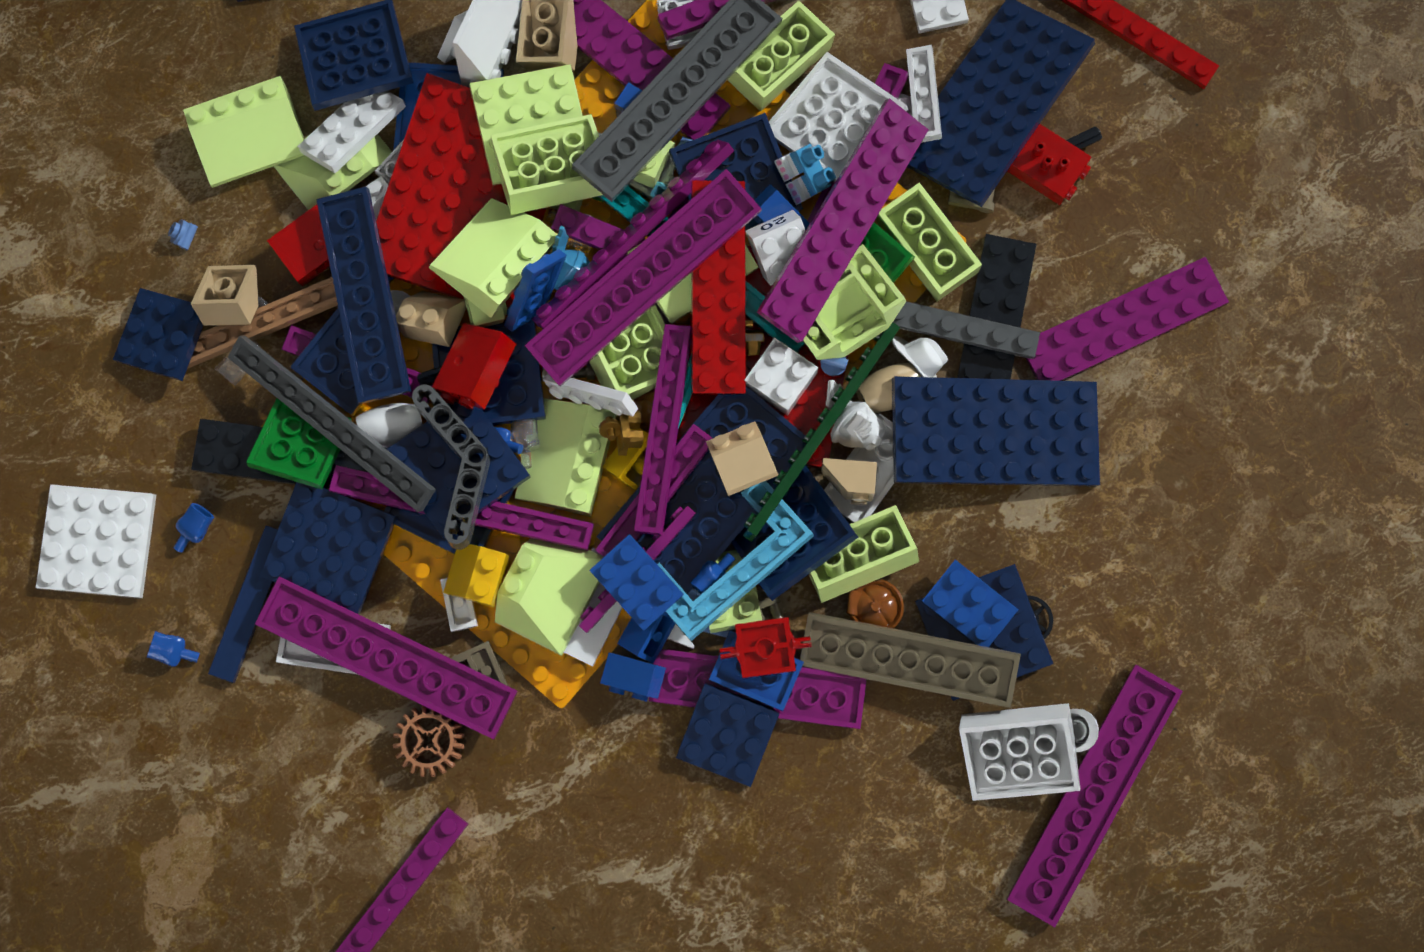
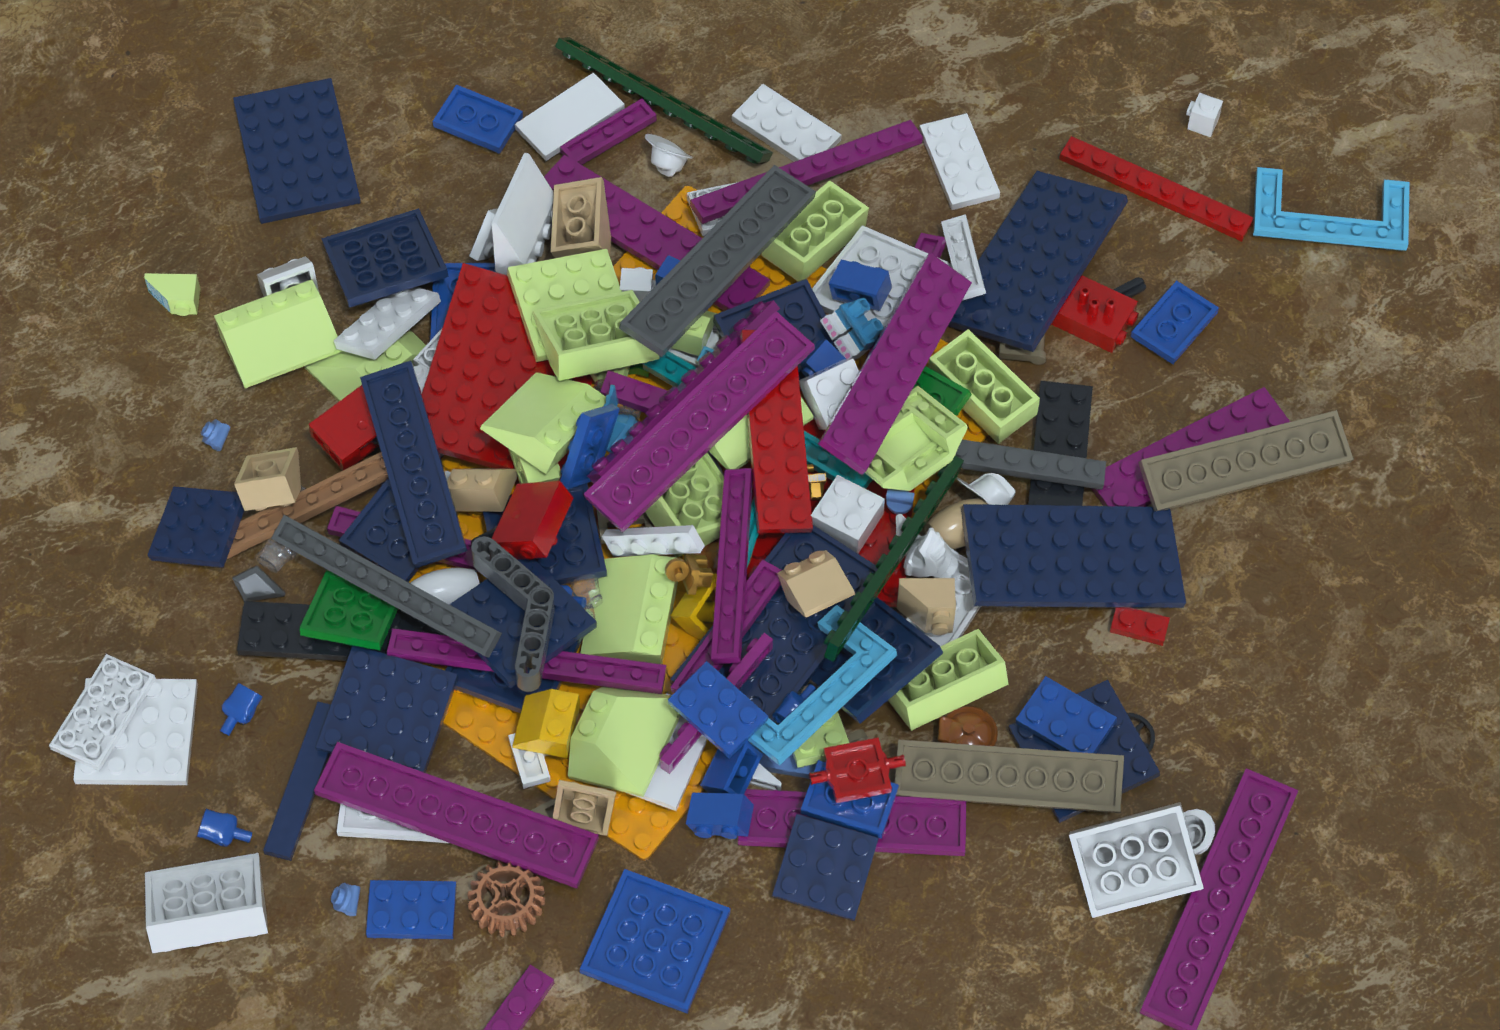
camera: 10 degrees left, 20 degrees down
(63, 524) = (102, 712): none -> white tile
(151, 722) = (205, 903): none -> white slope
(152, 76) = (175, 292): none -> yellowish green slope
(214, 399) = (256, 585): none -> dark grey piece
(257, 69) = (286, 276): none -> white slope
(282, 727) = (346, 899): none -> medium blue plate
(342, 742) = (411, 909): none -> blue plate
(505, 660) = (584, 806): none -> tan slope
(564, 793) = (655, 941): none -> blue plate
(598, 102) = (638, 280): none -> white brick
(817, 124) = (859, 281): none -> blue brick
(1053, 503) = (1140, 625): none -> red plate
(1125, 178) = (1174, 322): none -> blue plate
(1177, 340) = (1245, 461): none -> dark tan plate
(1351, 94) = (1388, 233): none -> medium azure plate

